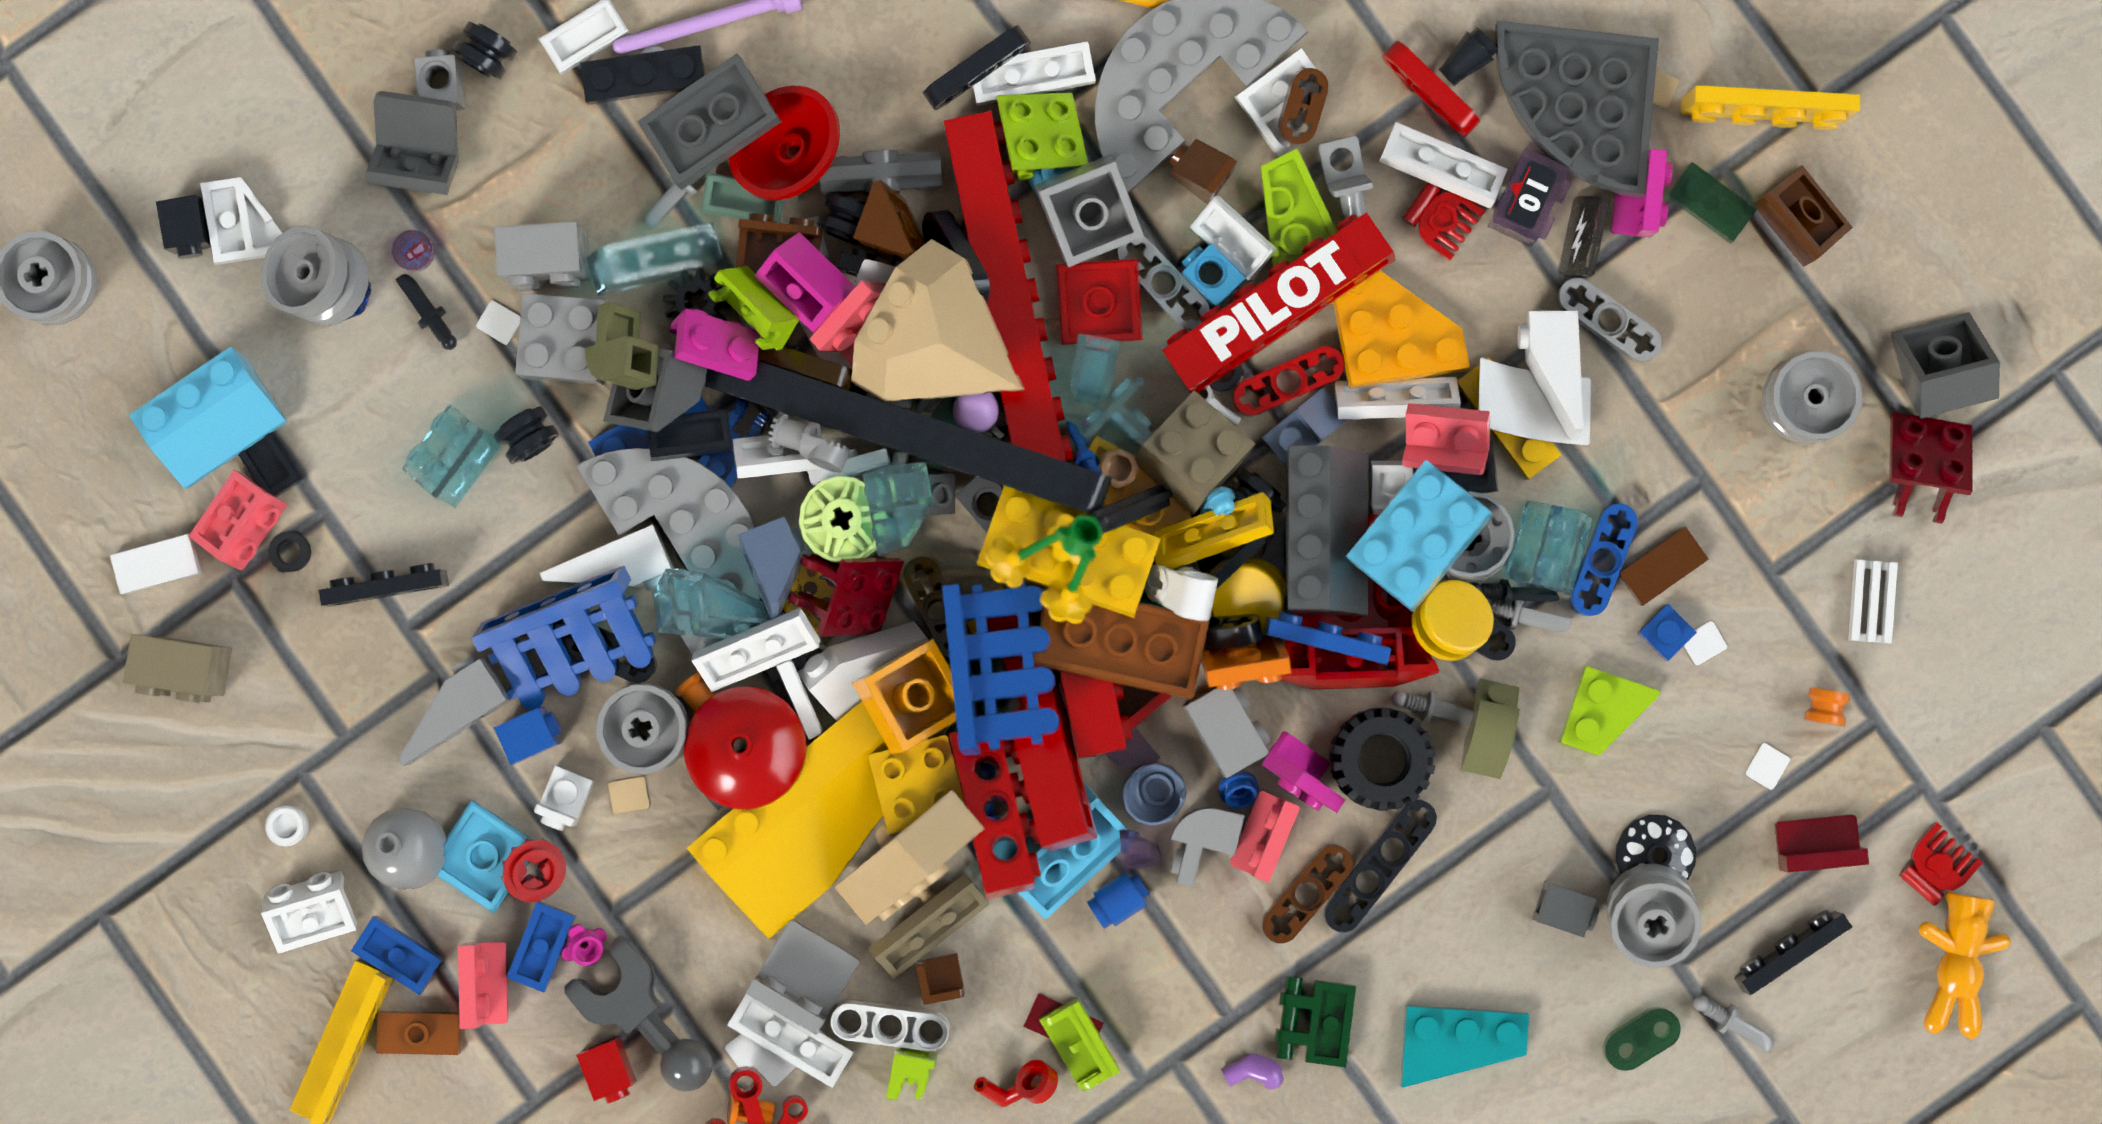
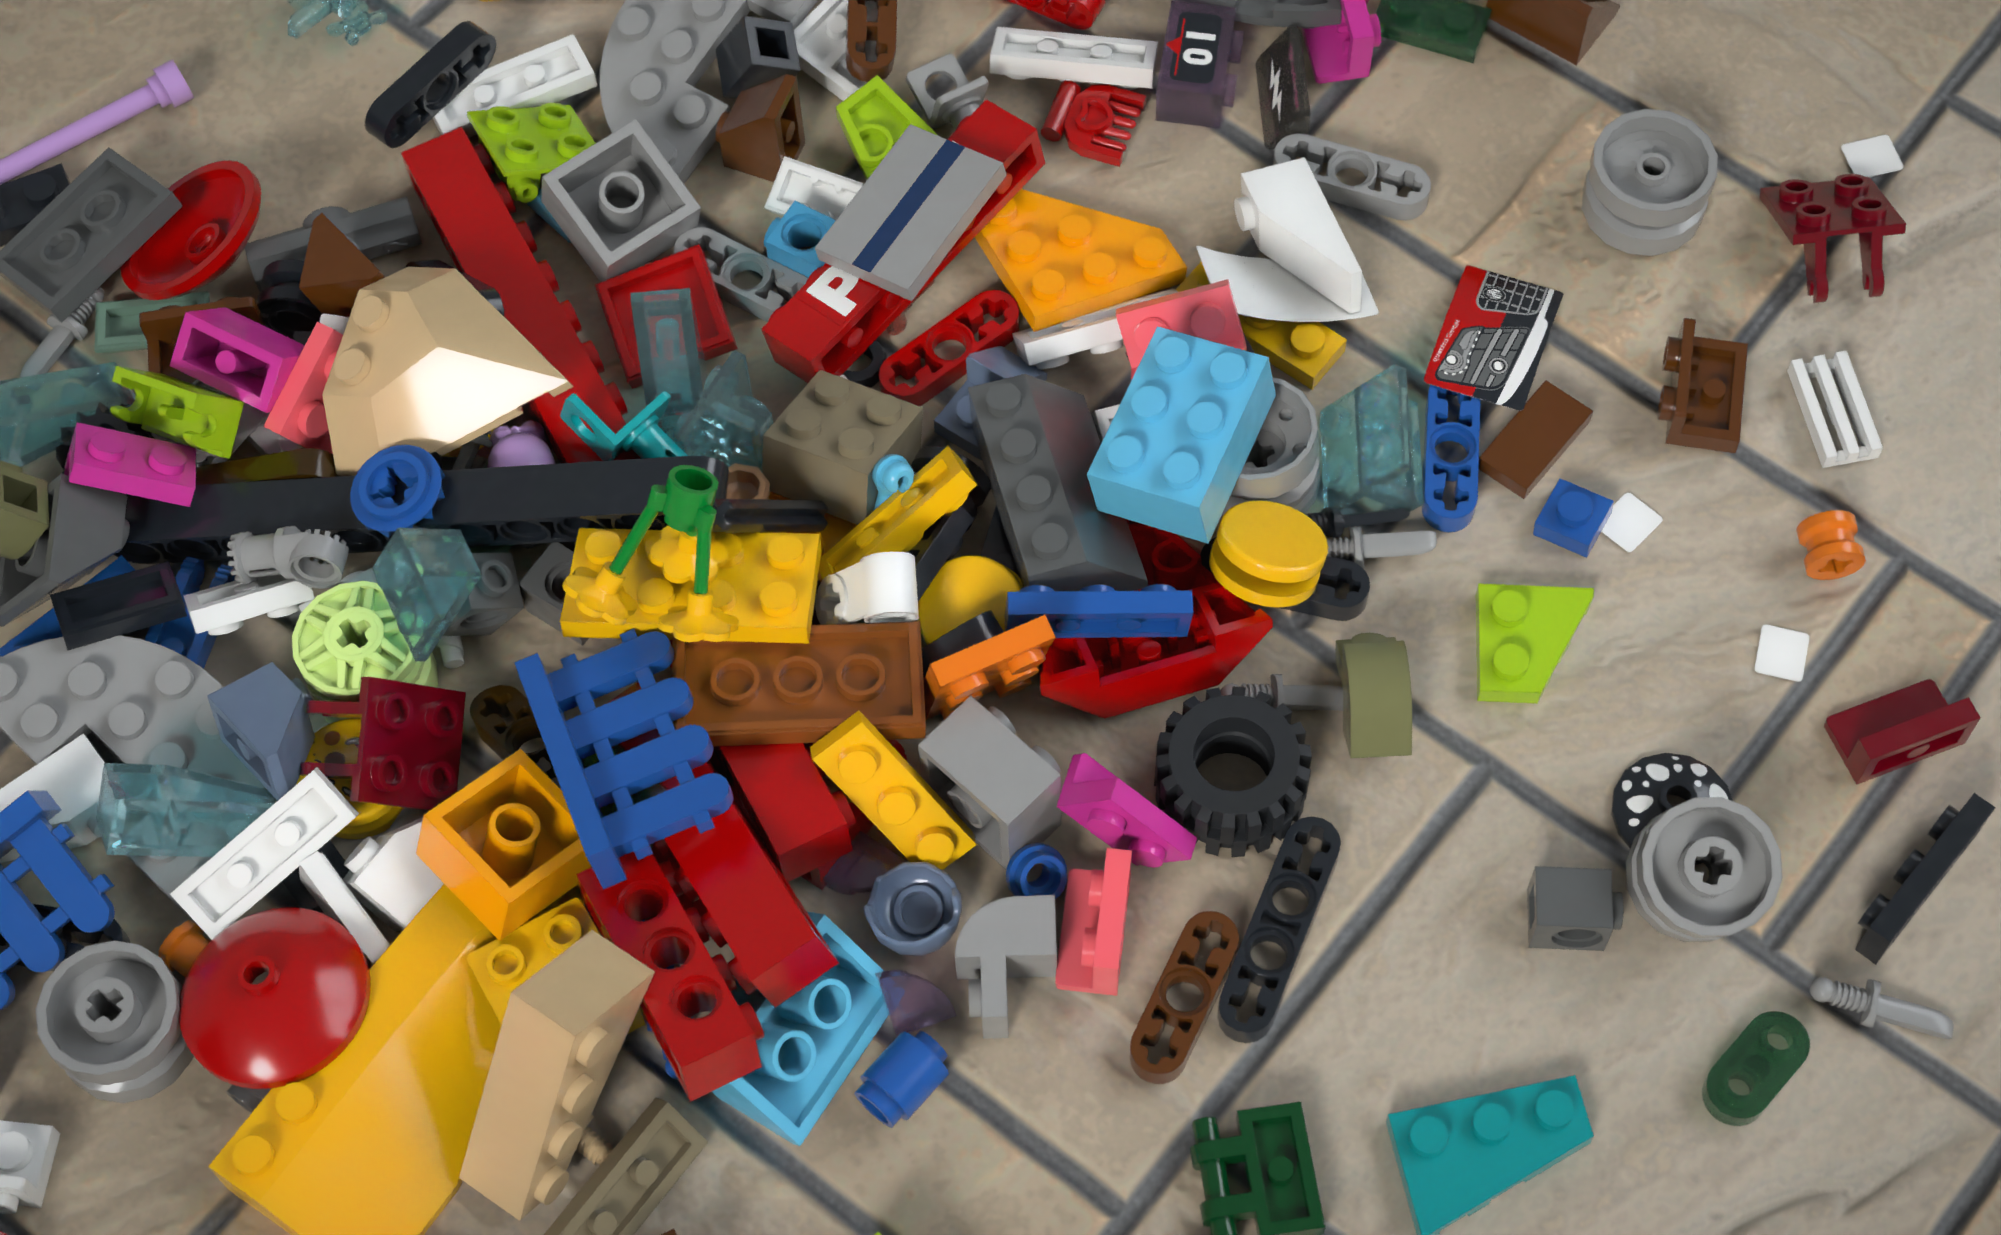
camera: 15 degrees left, 25 degrees down
(628, 795) = (116, 1140): tan sticker -> none
(877, 412) = (376, 485): none -> blue gear
(1059, 423) = (639, 434): none -> teal bracket
(1160, 725) = (892, 793): none -> yellow plate
(1215, 109) = (756, 54): none -> black brick
(1288, 295) = (910, 212): none -> light grey tile
(1663, 480) = (1493, 337): none -> sticker
(1788, 567) = (1705, 390): none -> reddish brown bracket
(1946, 365) = (1809, 113): dark grey slope -> none
(1983, 412) = (1872, 156): none -> white sticker

